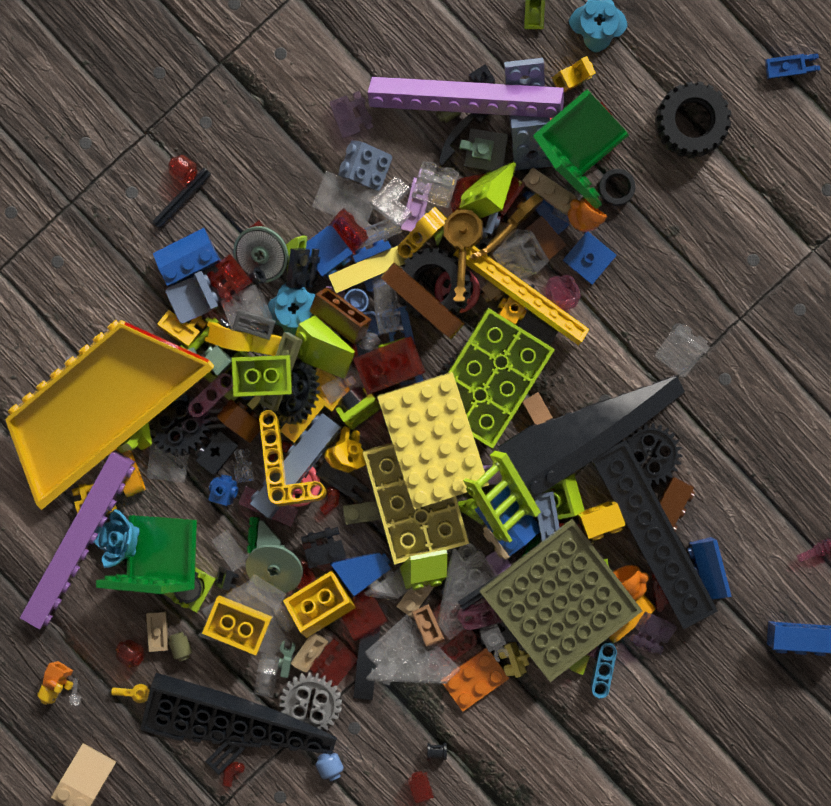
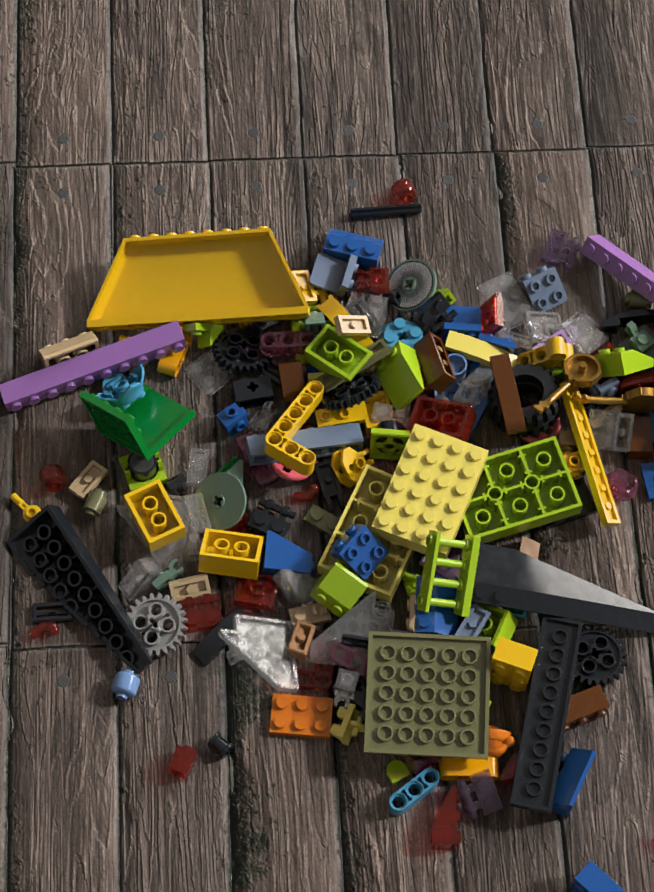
camera: 40 degrees right, 25 degrees down
(46, 541) = (68, 349): none -> tan slope
(254, 346) = (352, 325): none -> tan plate
(417, 530) = (360, 550): none -> blue bracket
(645, 677) = (444, 827): none -> clear red slope

